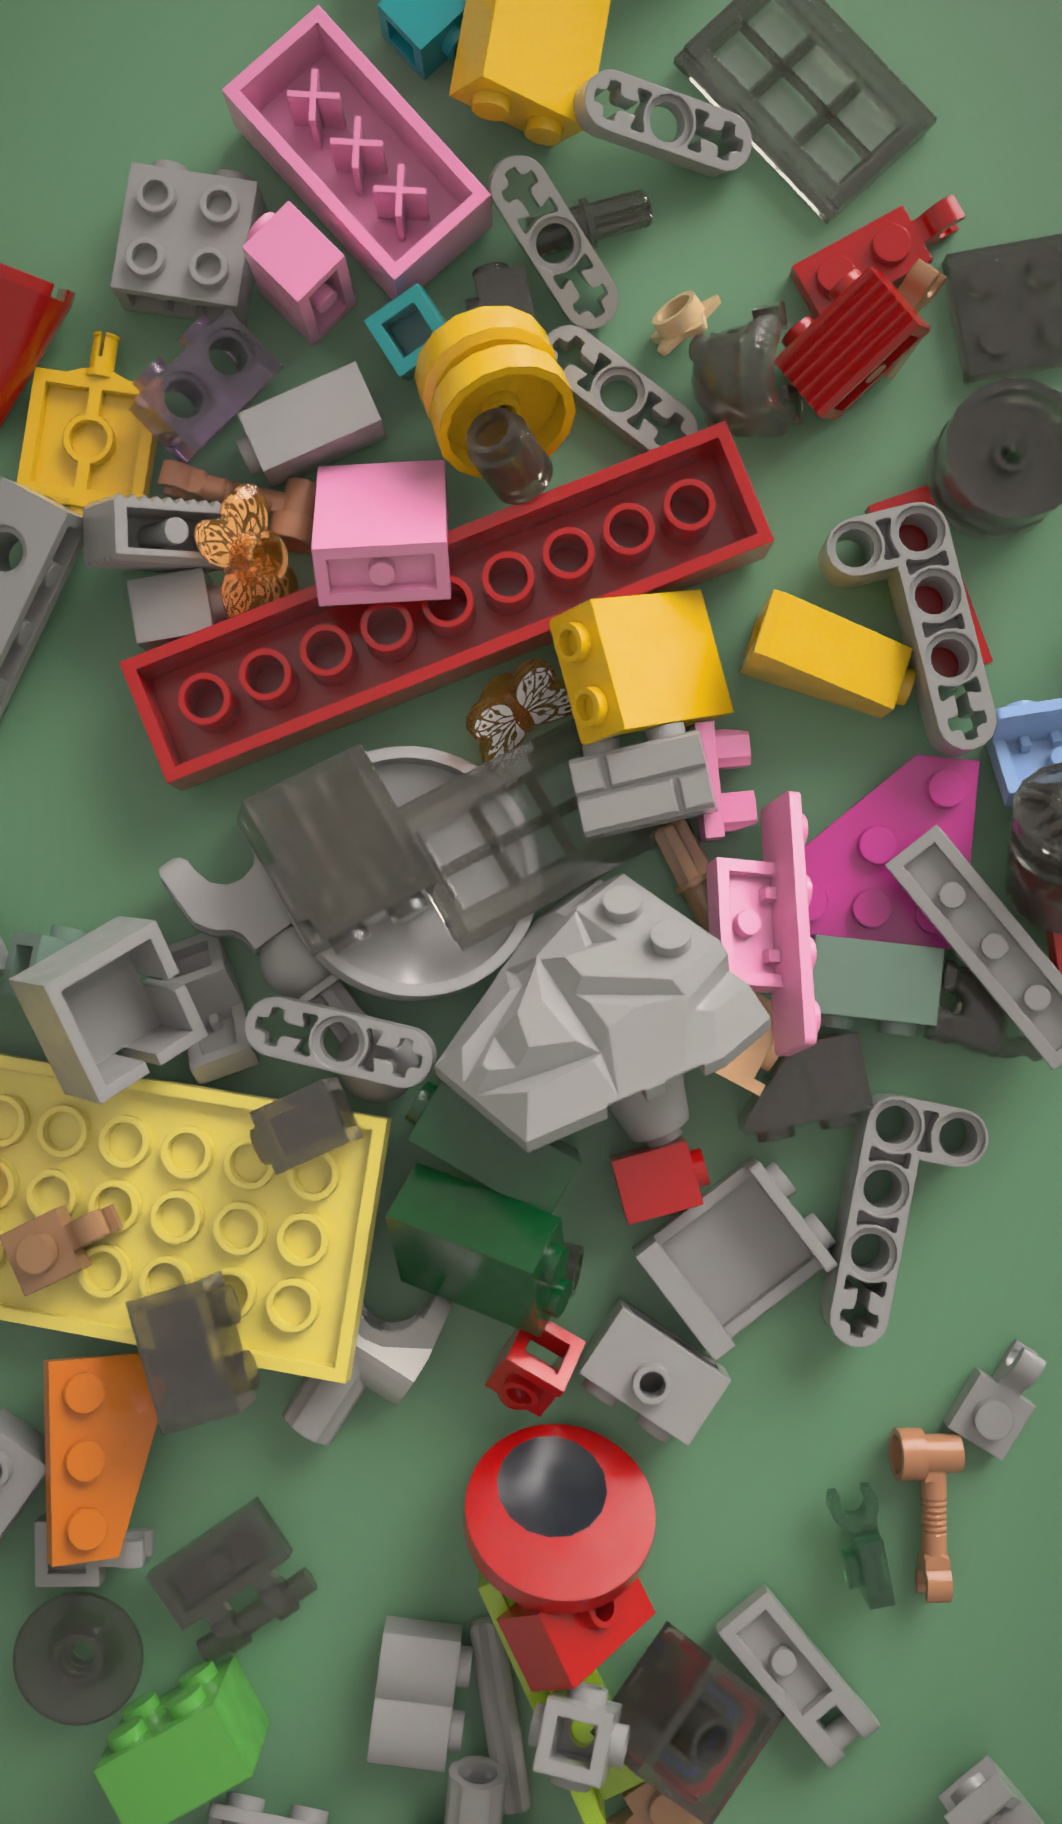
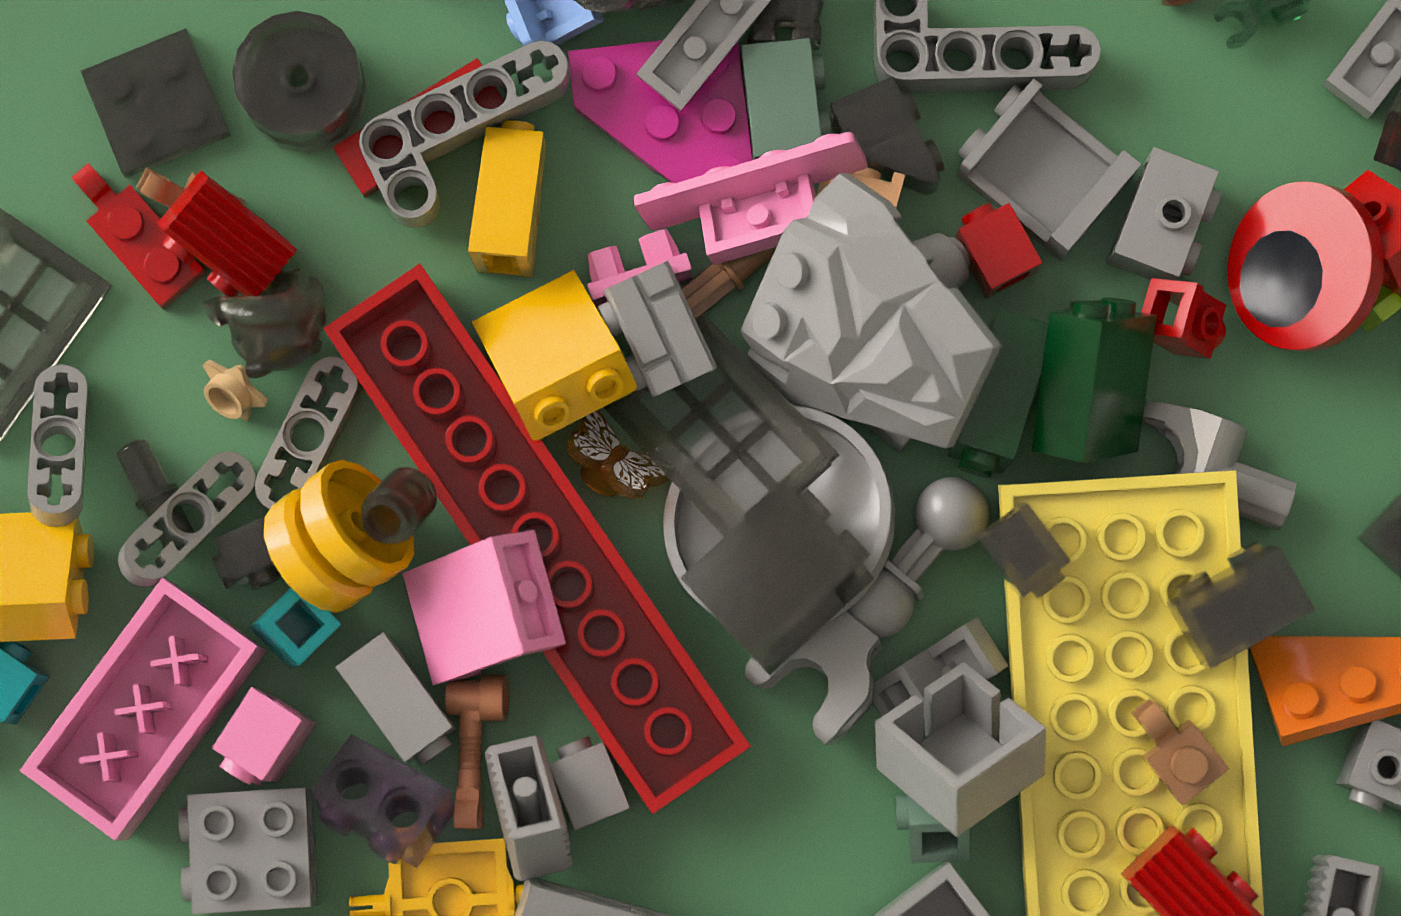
camera: 100 degrees left, 5 degrees down
(249, 553) = (532, 721): clear orange animal -> none
(298, 1012) = (954, 585): light grey beam -> none

